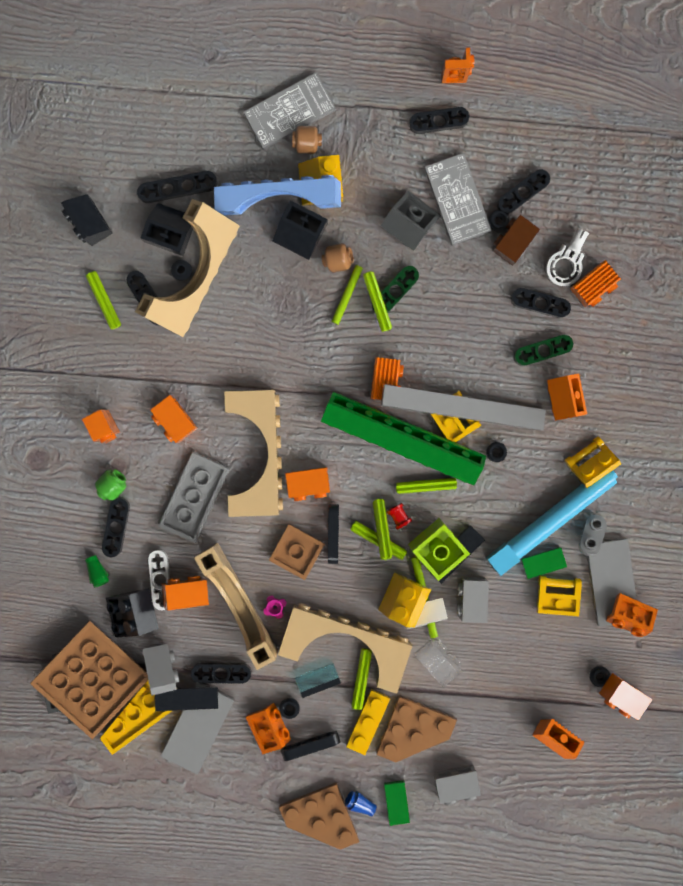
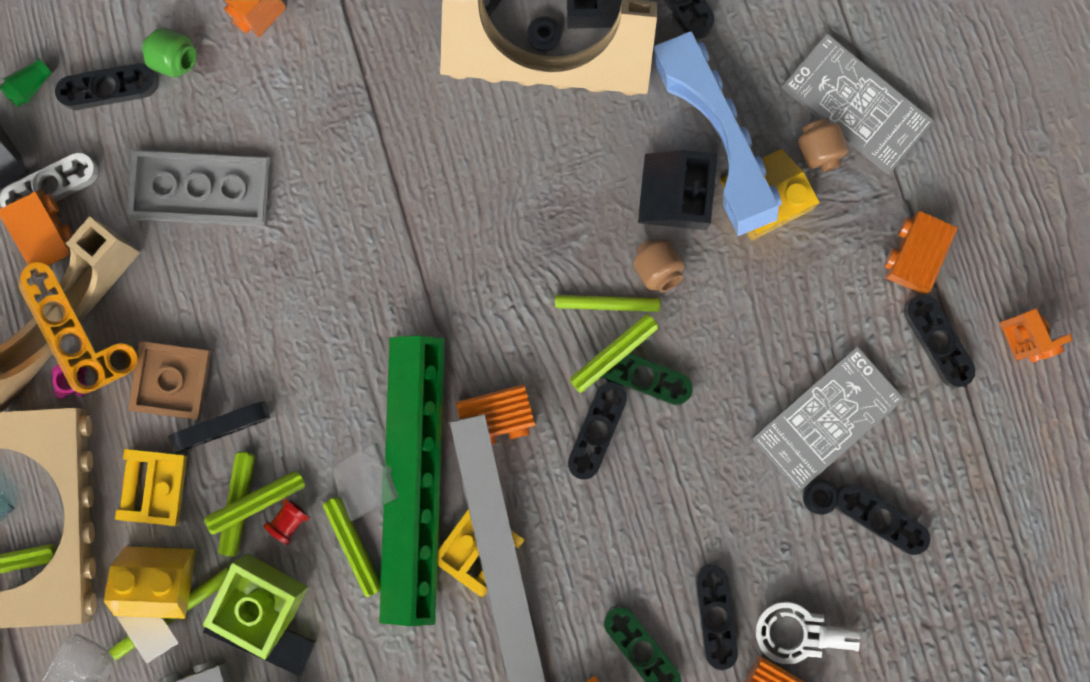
camera: 70 degrees right, 5 degrees down
(173, 419) = (306, 109): orange brick -> none
(248, 604) = (70, 326): none -> light orange beam
(264, 495) = (371, 240): tan arch -> none
(307, 483) = (284, 355): orange brick -> none
(354, 577) = (162, 488): none -> yellow plate
(386, 110) = (920, 252): none -> orange brick
(394, 465) = (364, 482): none -> clear piece
(410, 220) = (763, 356): dark grey slope -> none
(429, 335) = (615, 410): none -> black beam
(503, 452) = (449, 650): black plate -> none
(516, 240) = (801, 536): reddish brown brick -> none

